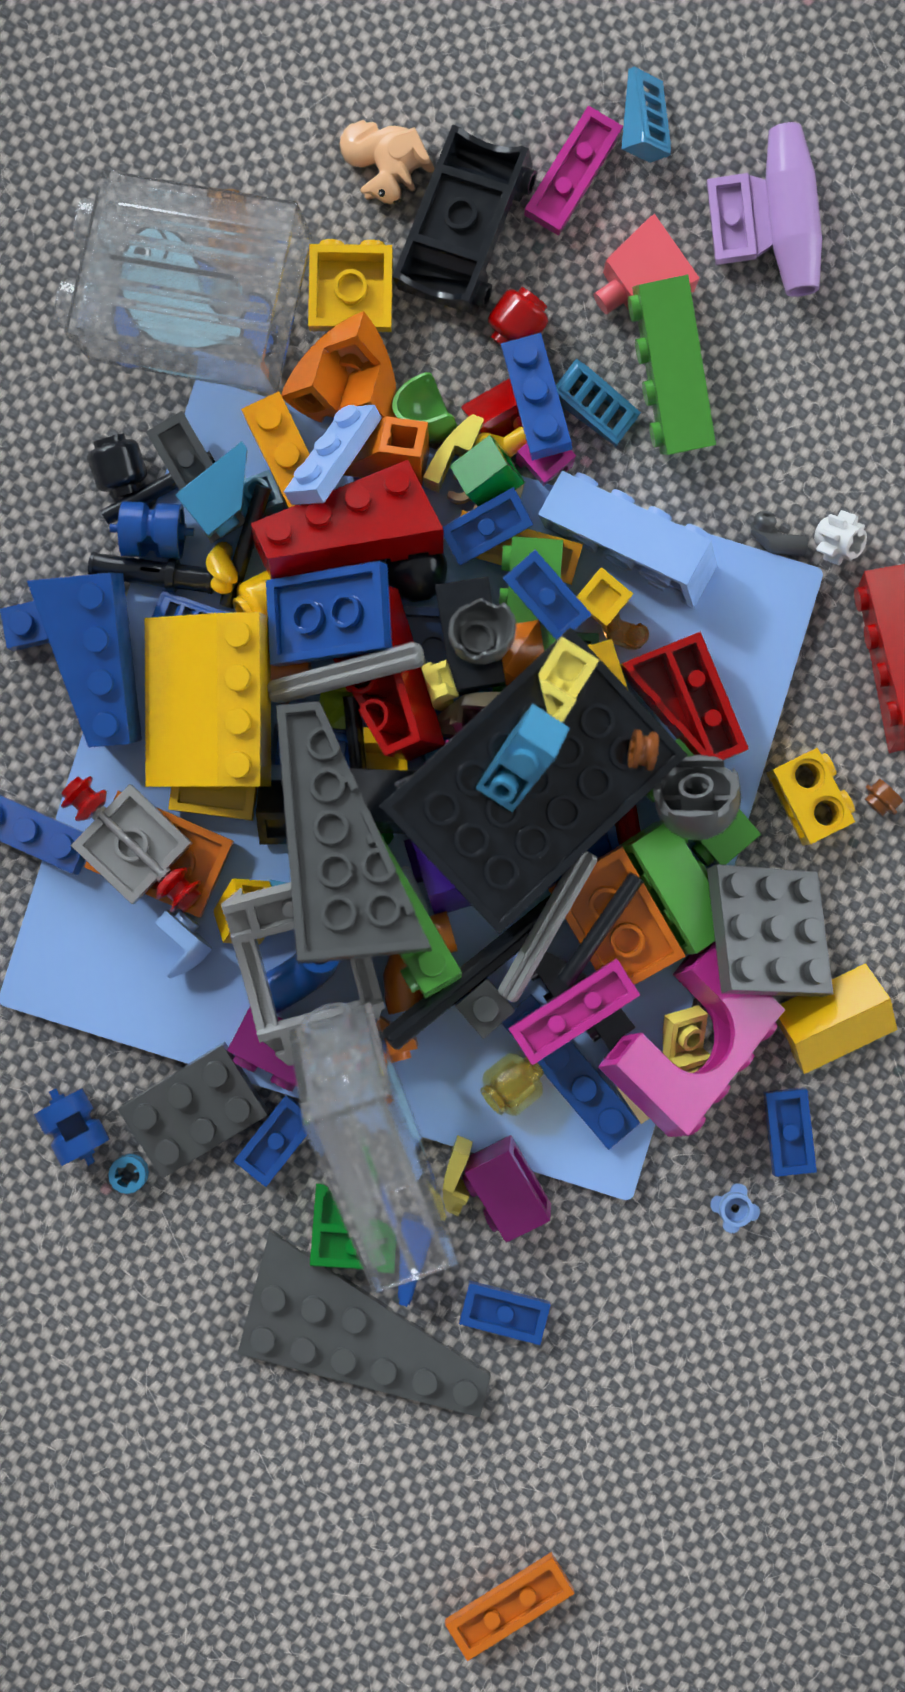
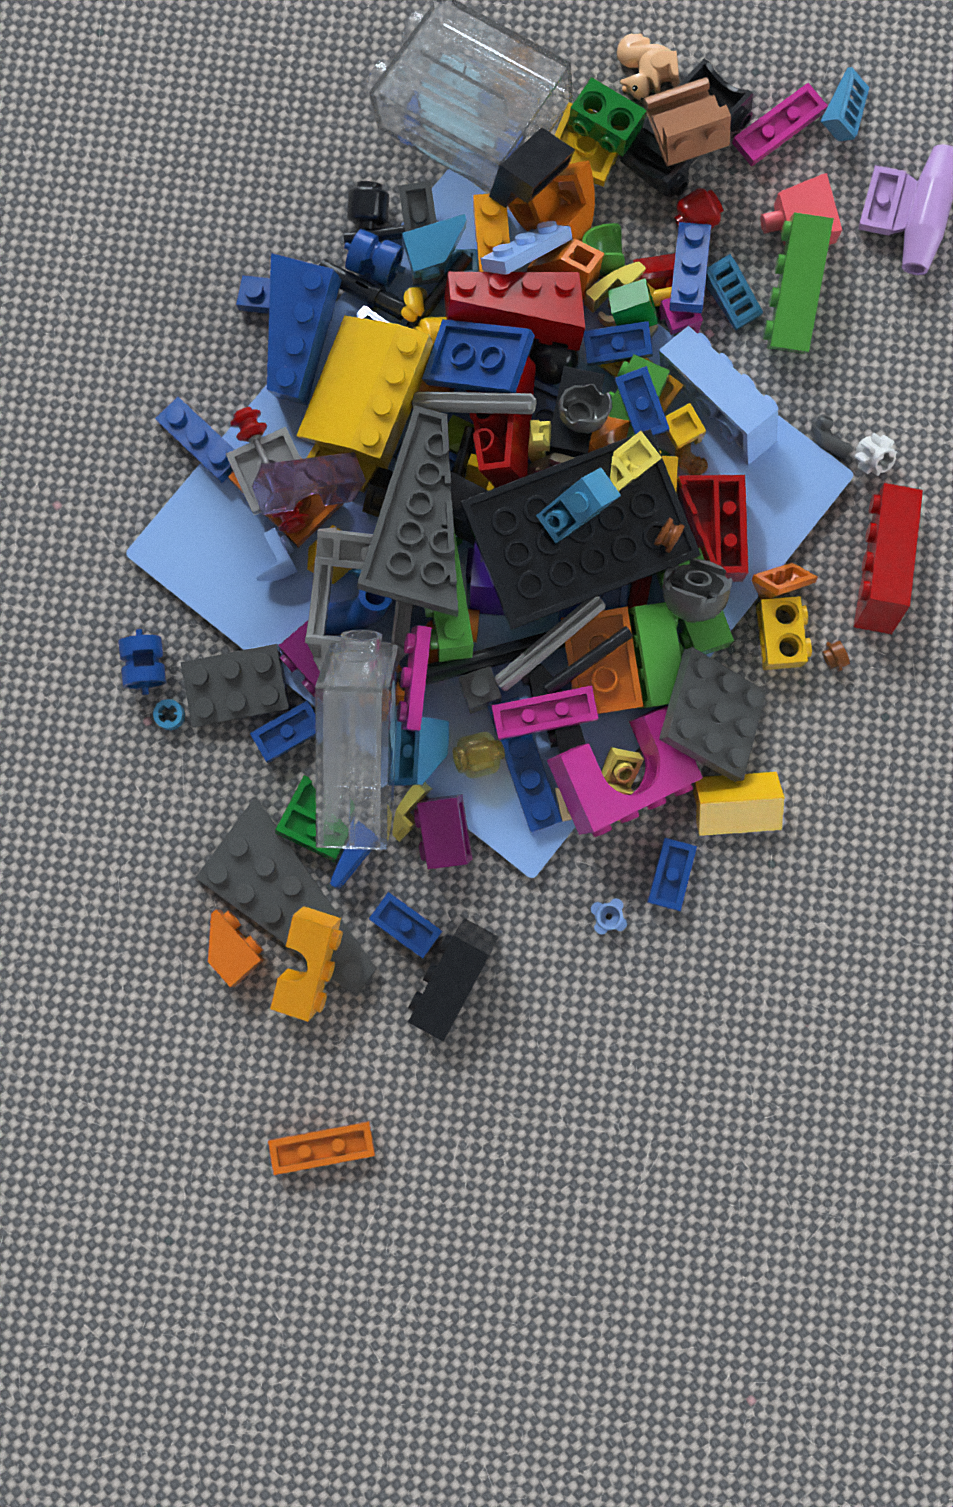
camera: 25 degrees right, 5 degrees down
(164, 859) = (285, 483): none -> clear purple arch
(300, 351) = (531, 168): none -> black piece
(314, 1423) = (229, 950): none -> orange slope
(368, 237) = (612, 111): none -> green brick
(406, 1037) = (414, 678): none -> dark pink plate
(407, 1378) = (315, 937): none -> light orange arch
(442, 1108) = (420, 751): none -> dark azure slope
(464, 216) = (688, 121): none -> nougat piece
(585, 1354) = (451, 979): none -> black wedge
(789, 734) = (781, 580): none -> orange slope

